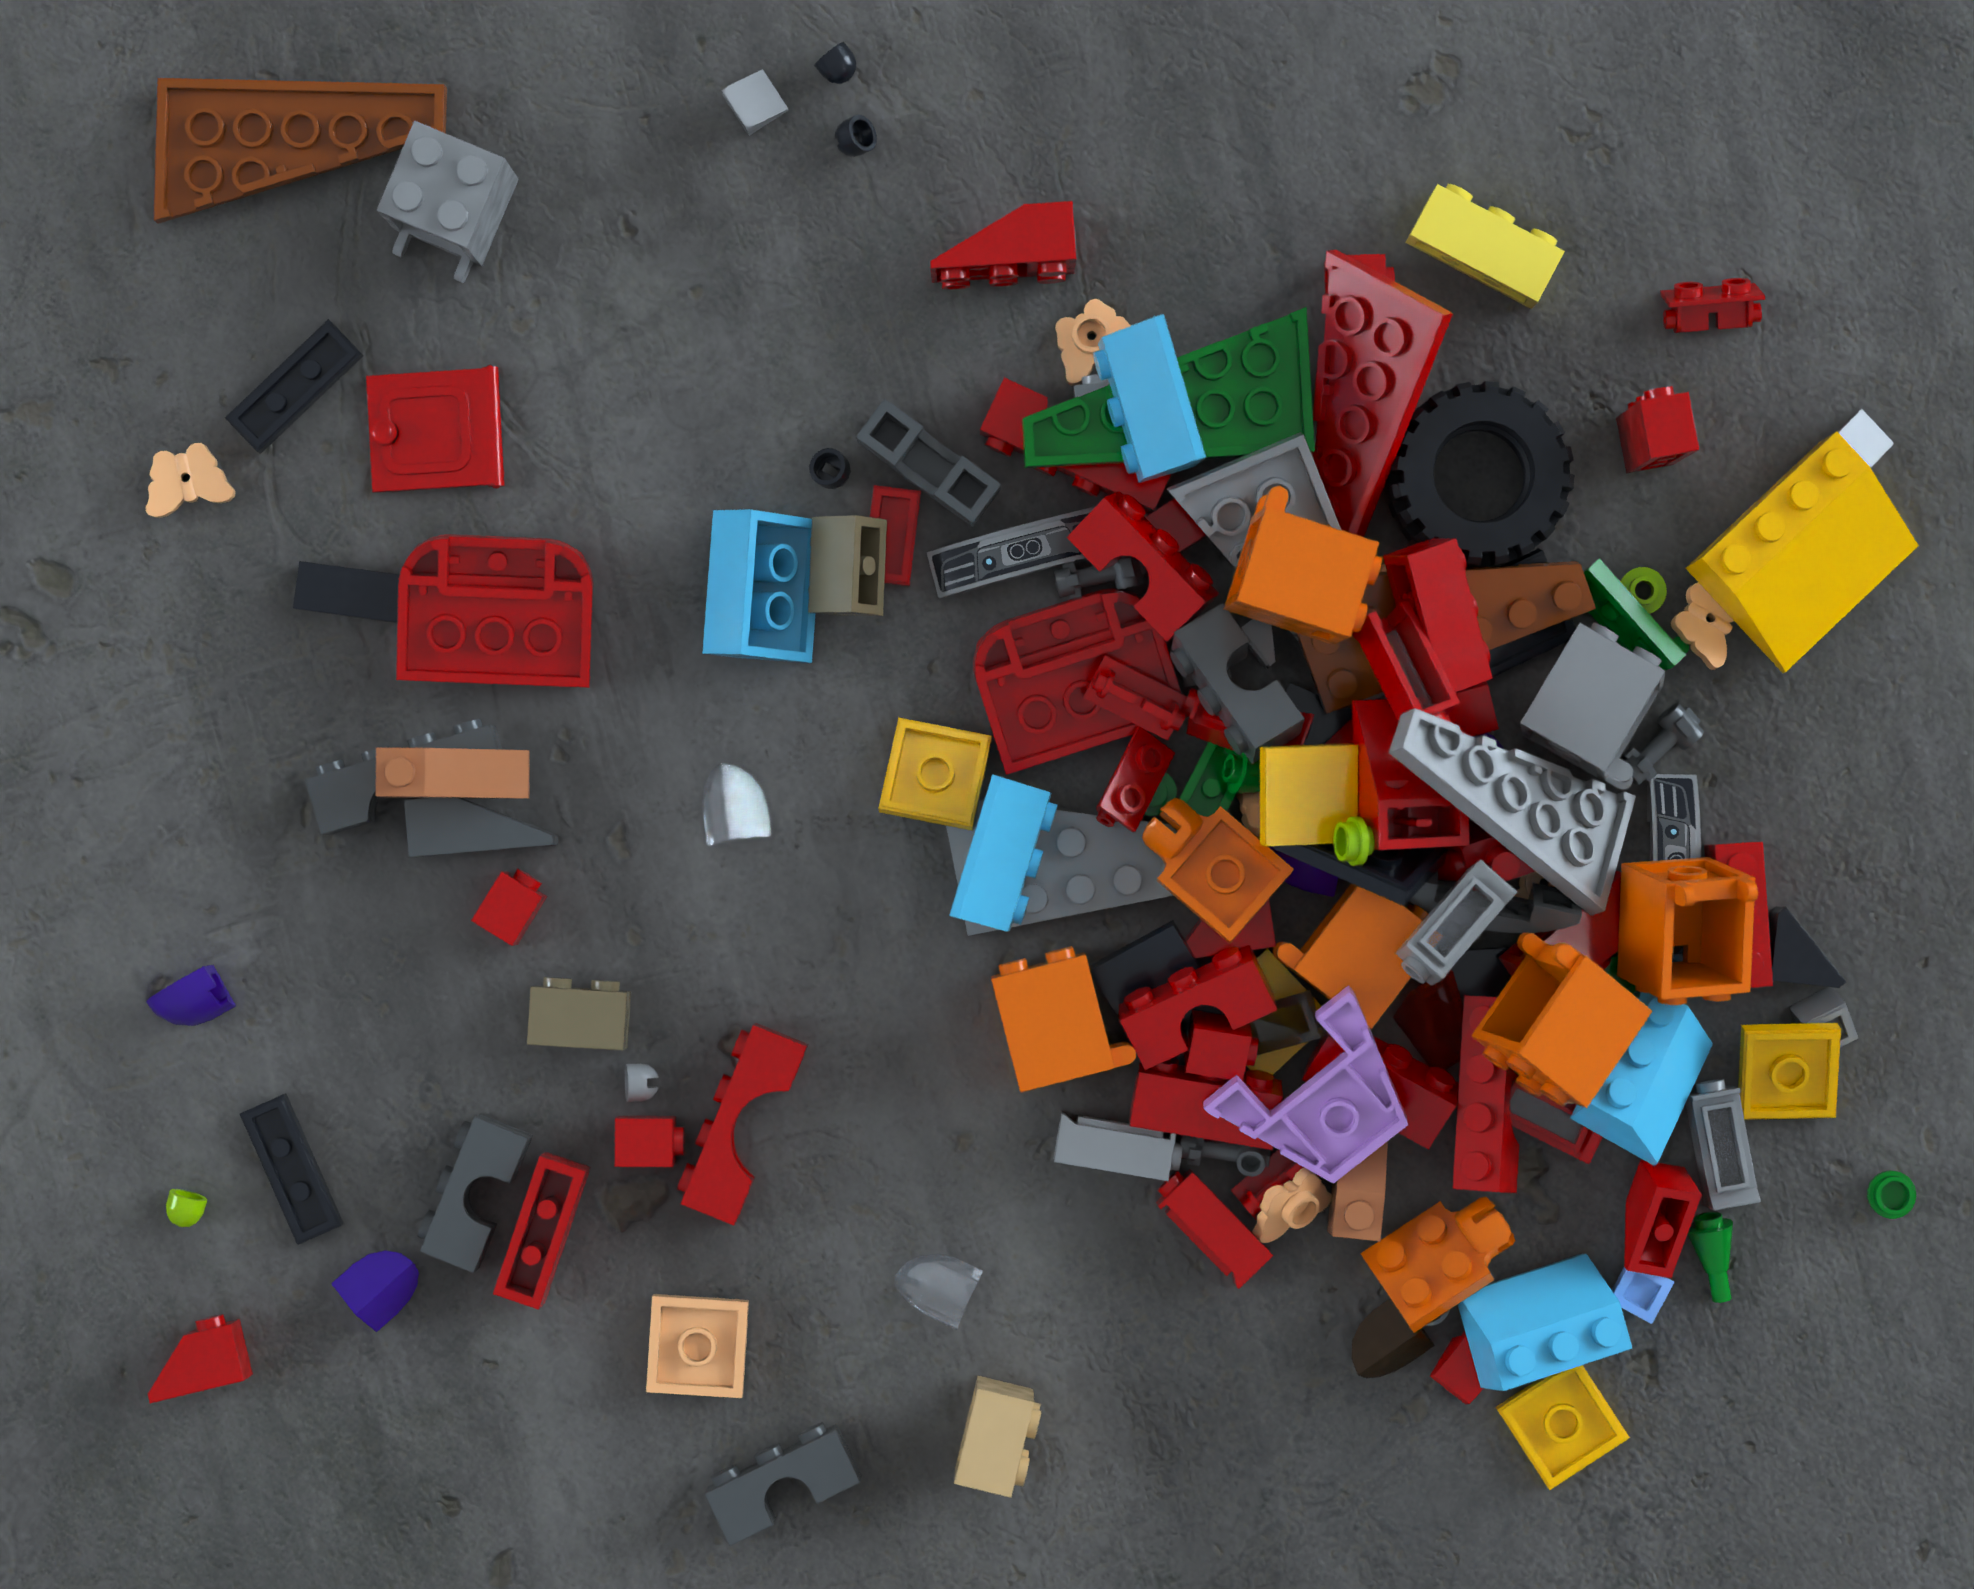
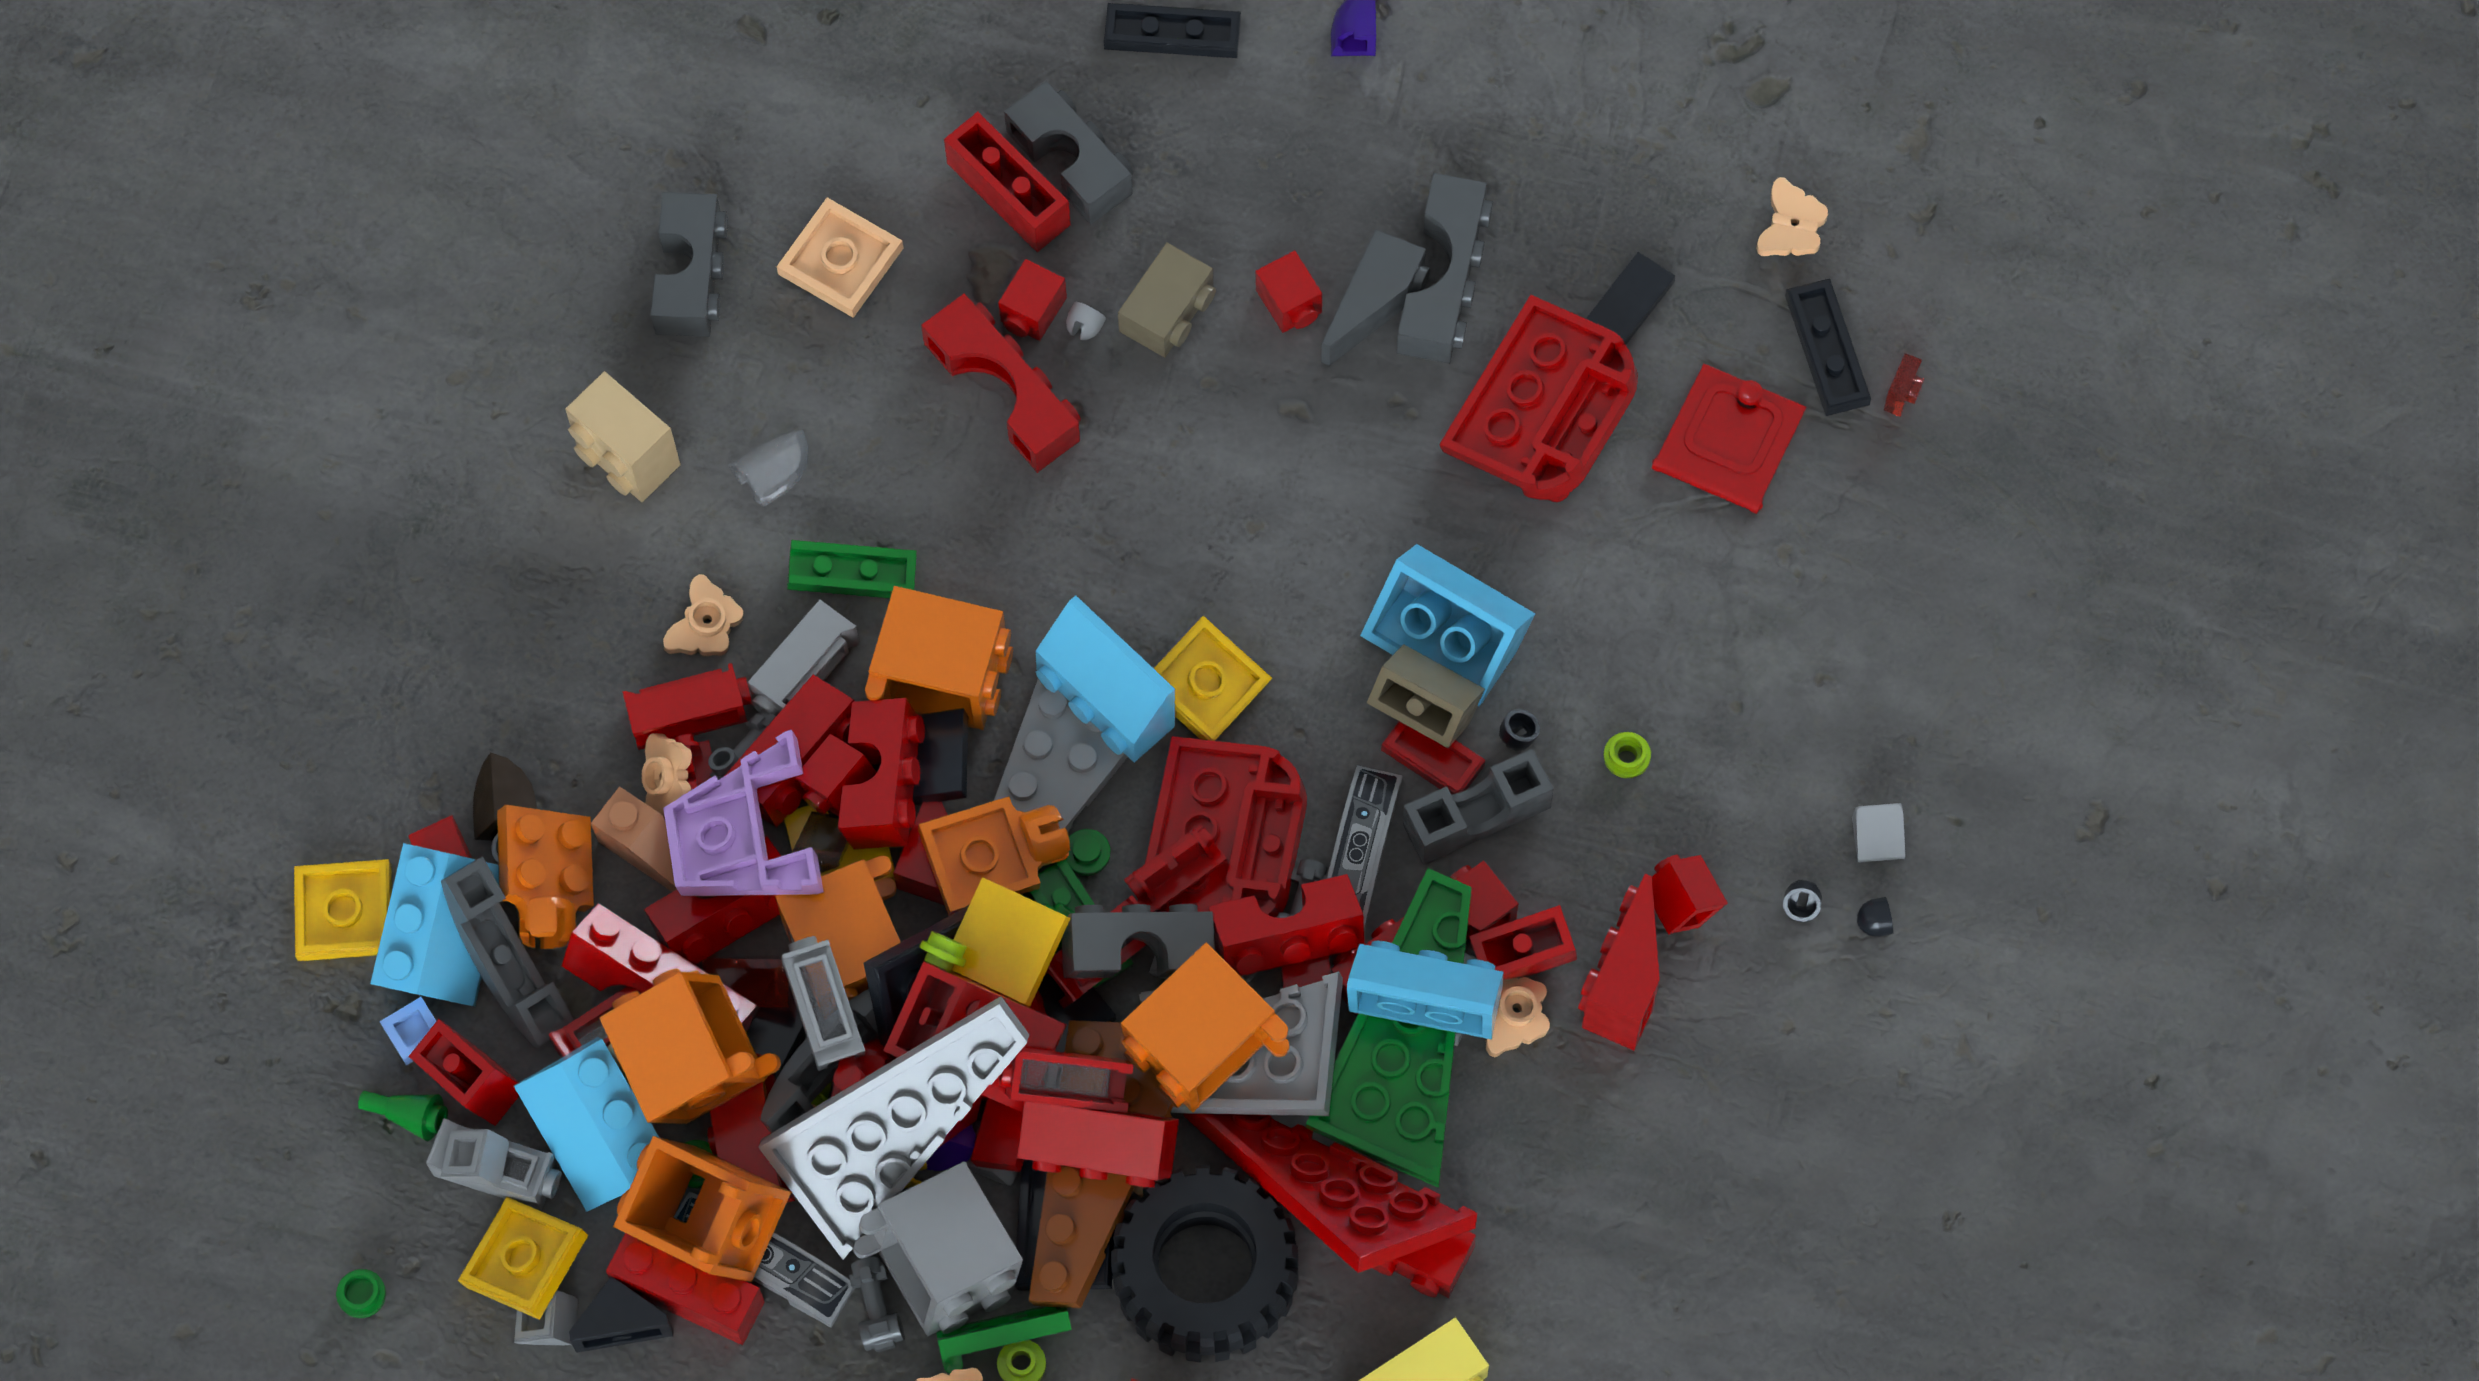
camera: 120 degrees right, 20 degrees down
(255, 135) = (2059, 422): dark orange wing -> none
(300, 292) = (1905, 385): none -> clear red plate
(378, 1286) = (1036, 42): dark purple brick -> none
(447, 196) = (1924, 530): light grey container -> none
(452, 773) = (1426, 287): nougat slope -> none
(733, 806) = (1270, 509): clear brick -> none
(799, 347) = (1627, 742): none -> lime plate
(910, 240) = (1685, 893): none -> red brick
(1001, 1155) = (849, 569): none -> green hinge
(1039, 352) = (1527, 944): none -> red slope
(1134, 781) = (1104, 833): red hinge -> none
(1137, 1264) = (694, 635): none -> light nougat animal
(1539, 1246) = (500, 955): none -> dark grey slope
(1736, 1160) = (475, 1156): none -> light grey slope

